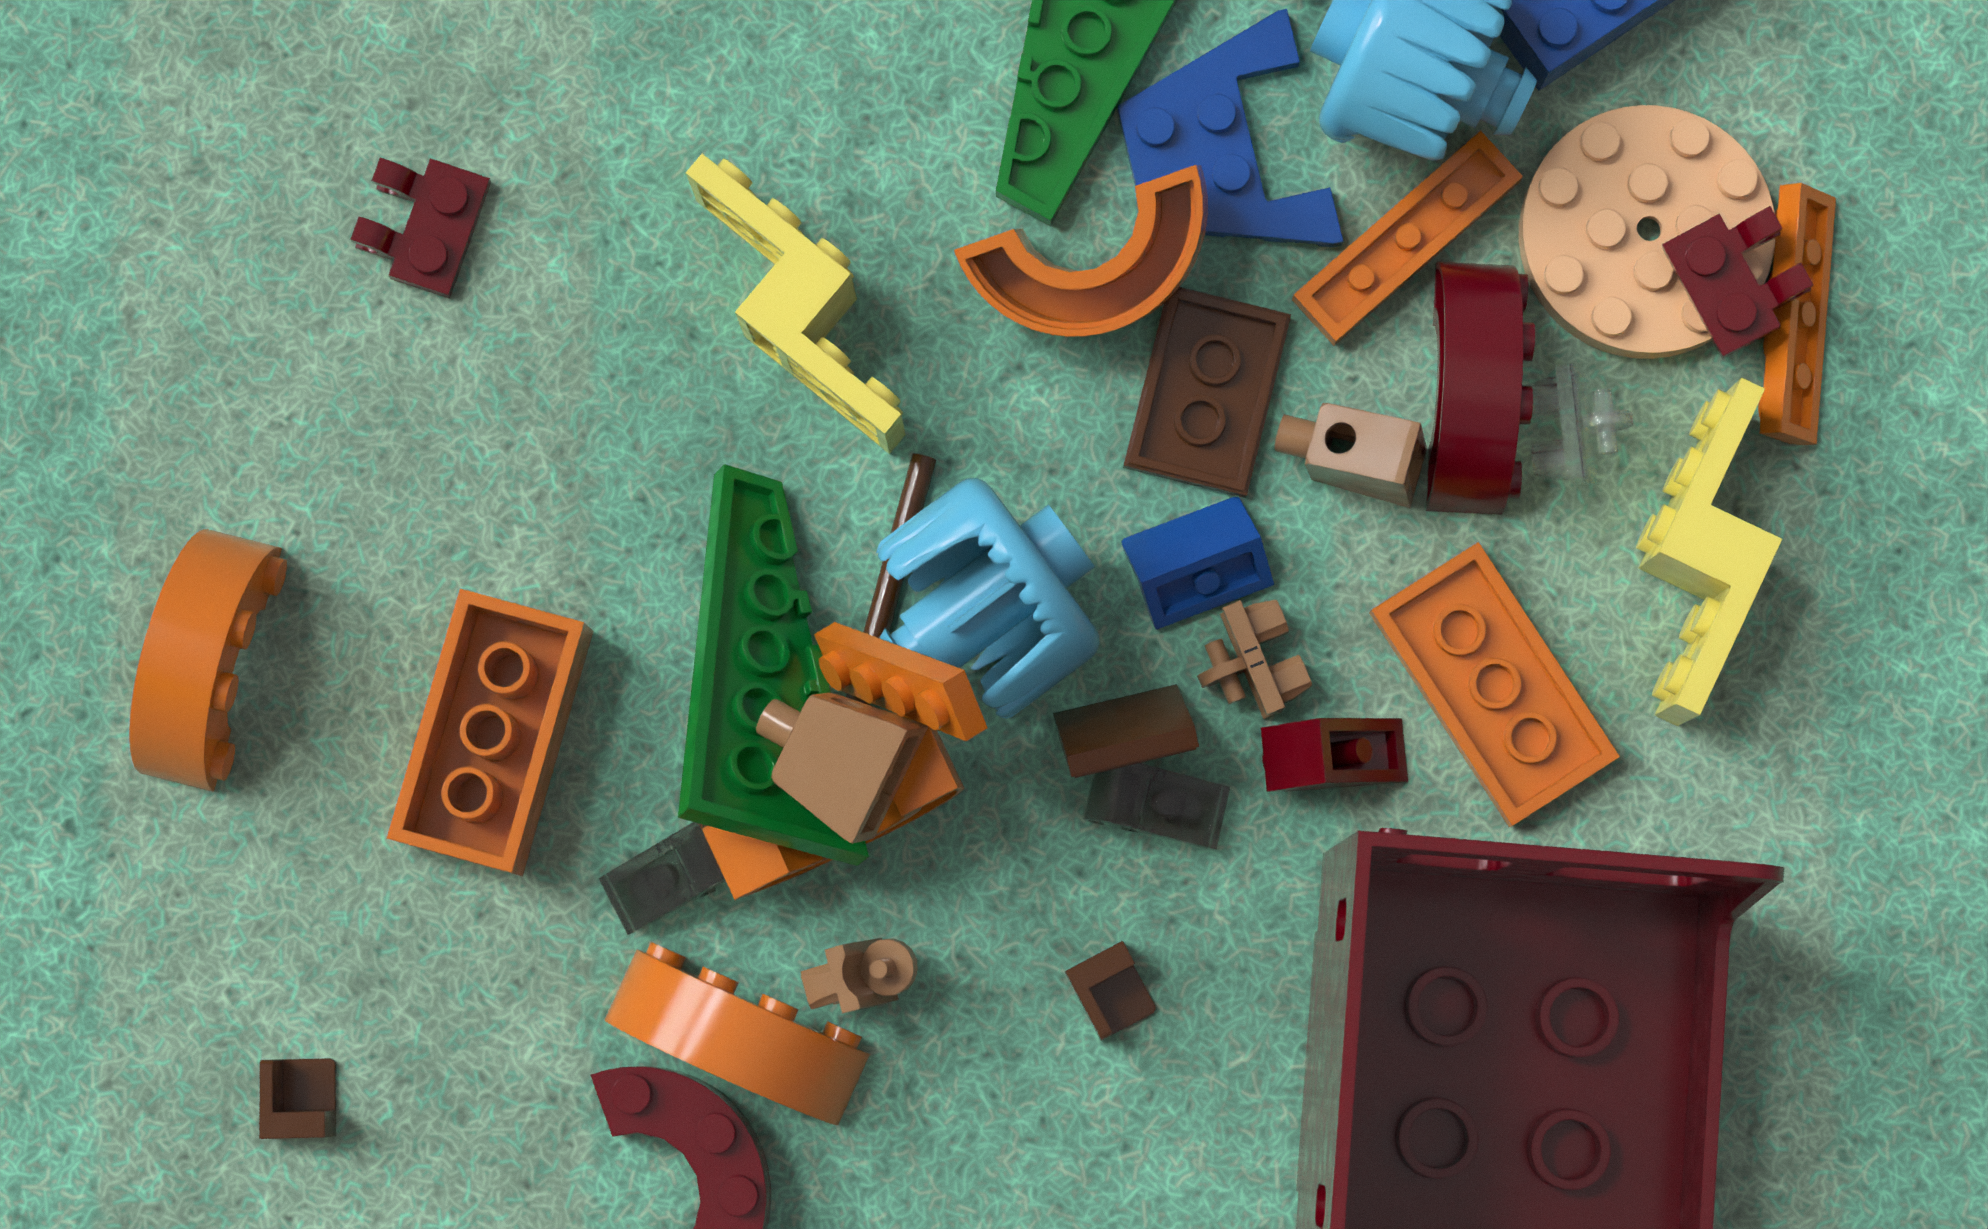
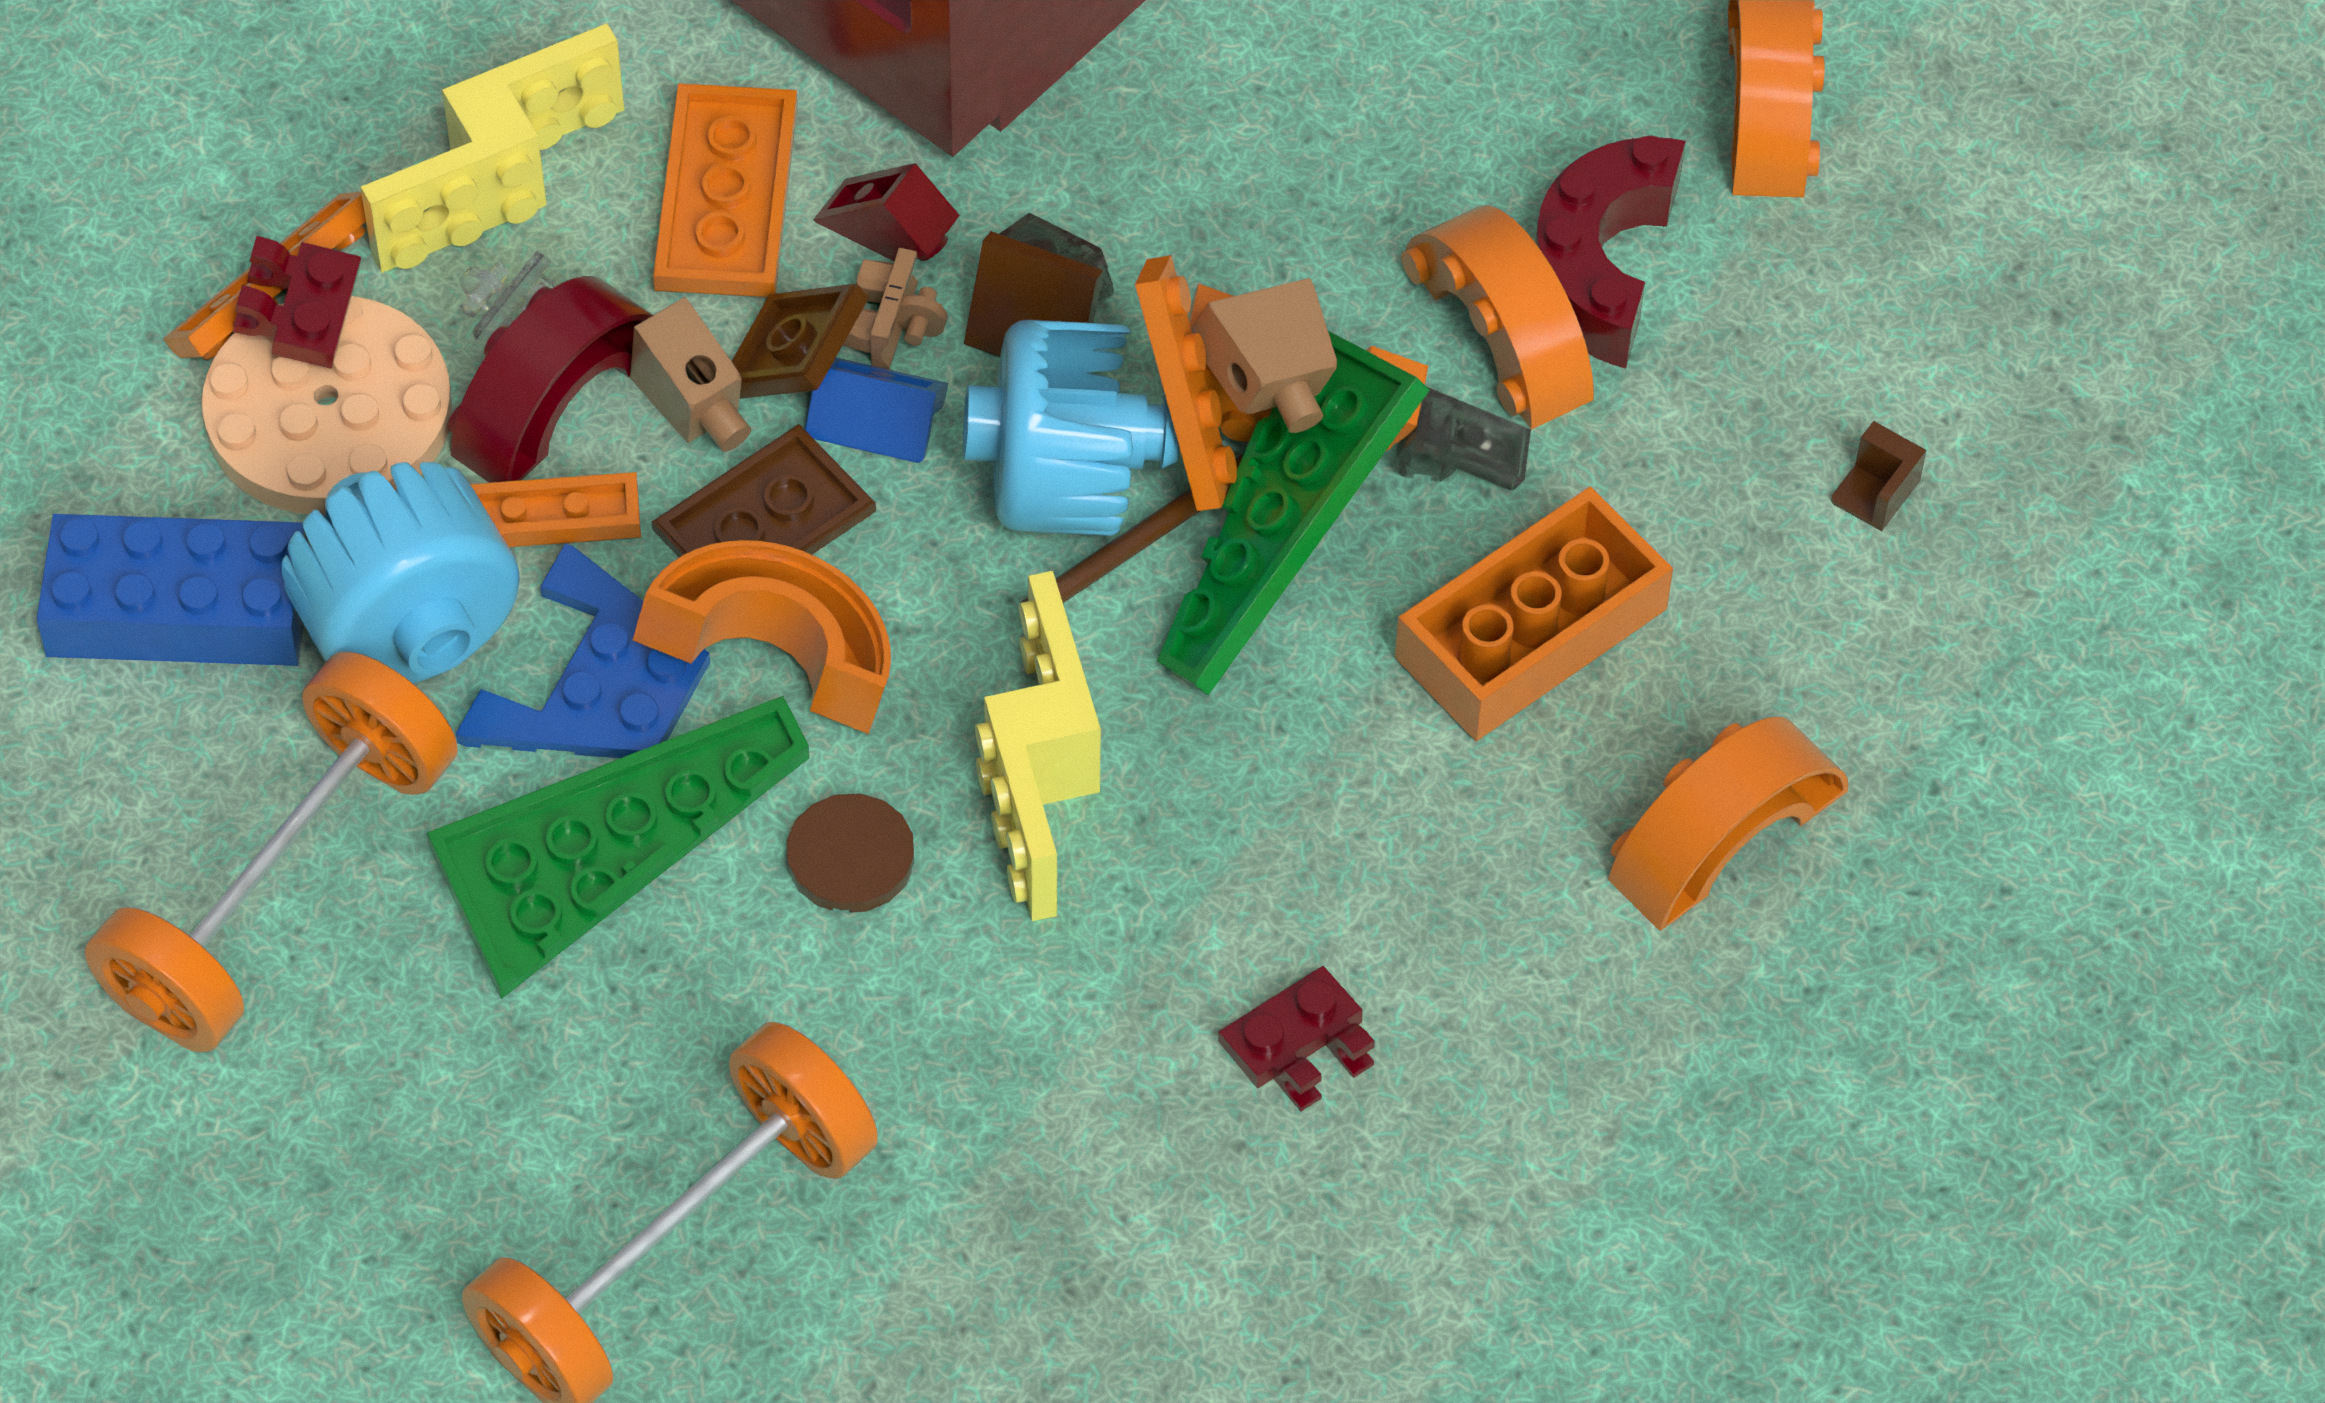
camera: 150 degrees left, 25 degrees down
(861, 975) = (1376, 280): medium nougat hips -> none
(896, 133) = (850, 852): none -> reddish brown tile
(1111, 990) = (1187, 182): reddish brown panel -> none
(1304, 556) = (797, 339): none -> reddish brown tile

